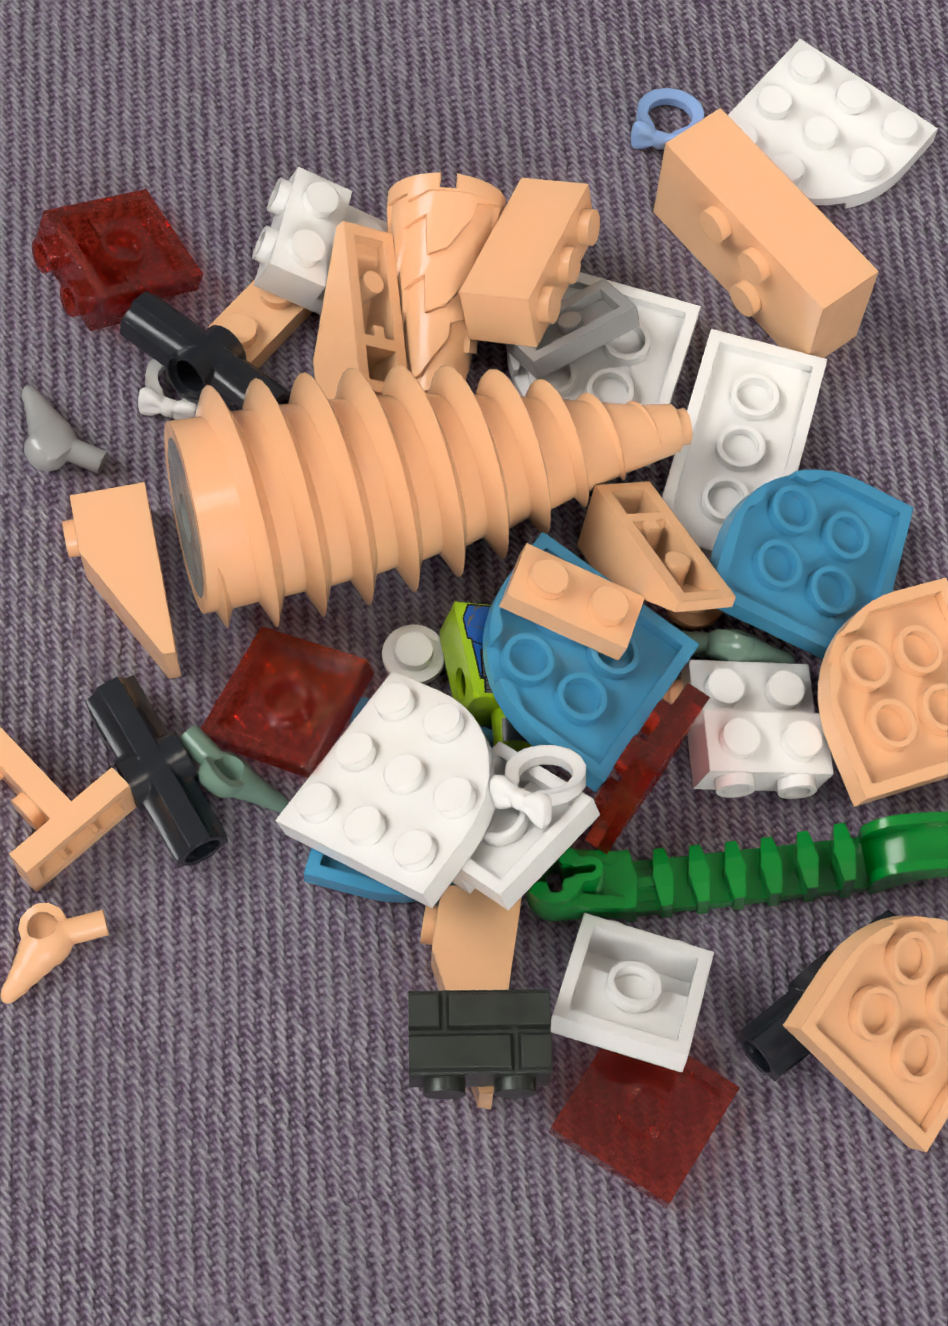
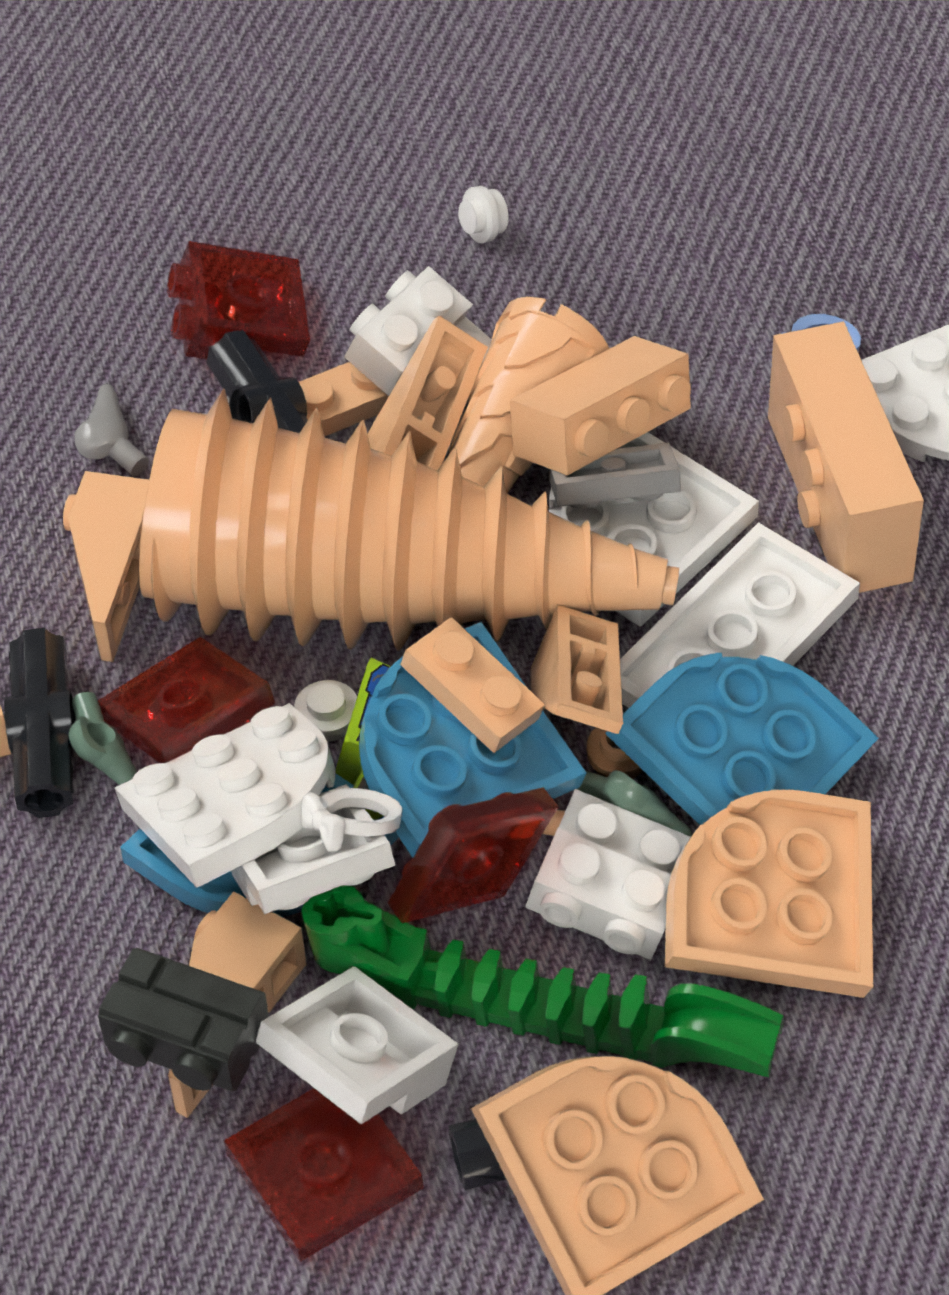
camera: 30 degrees right, 15 degrees down
(297, 82) = (483, 213): none -> white plate

